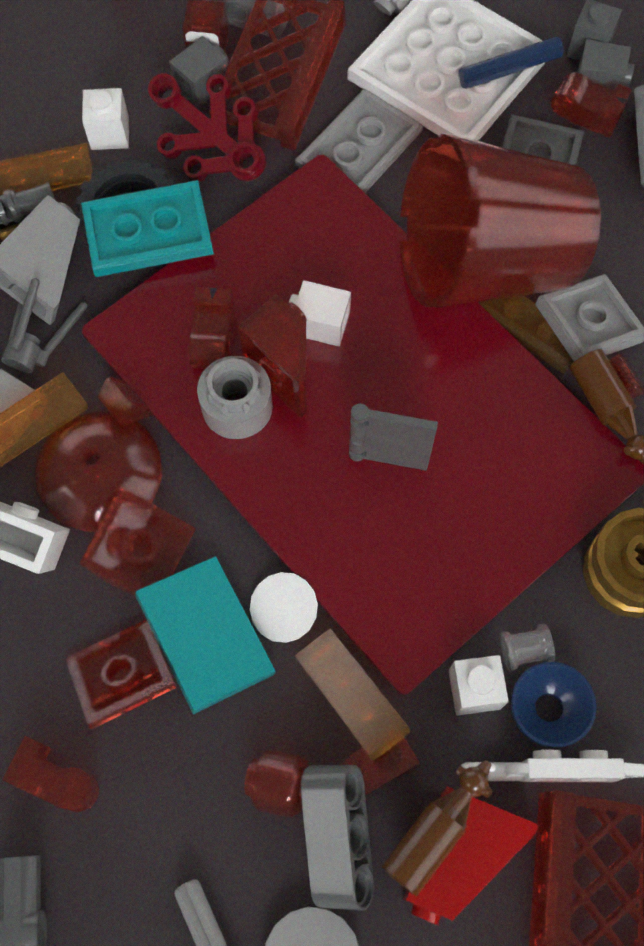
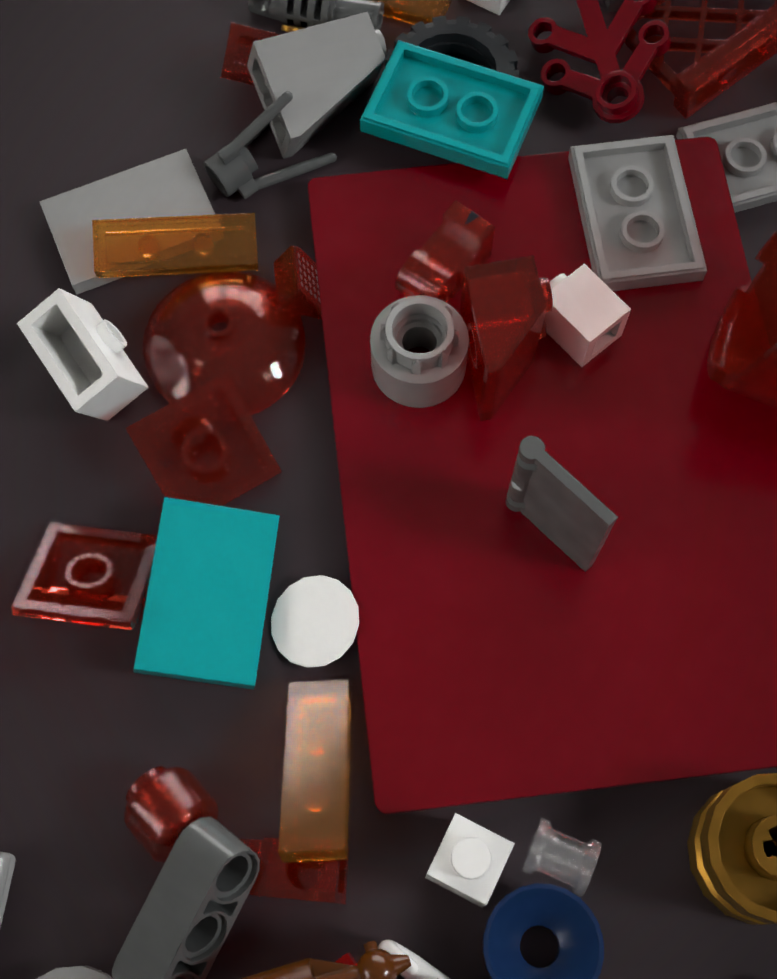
camera: 35 degrees right, 0 degrees up
(307, 229) = (636, 213): none -> light grey tile

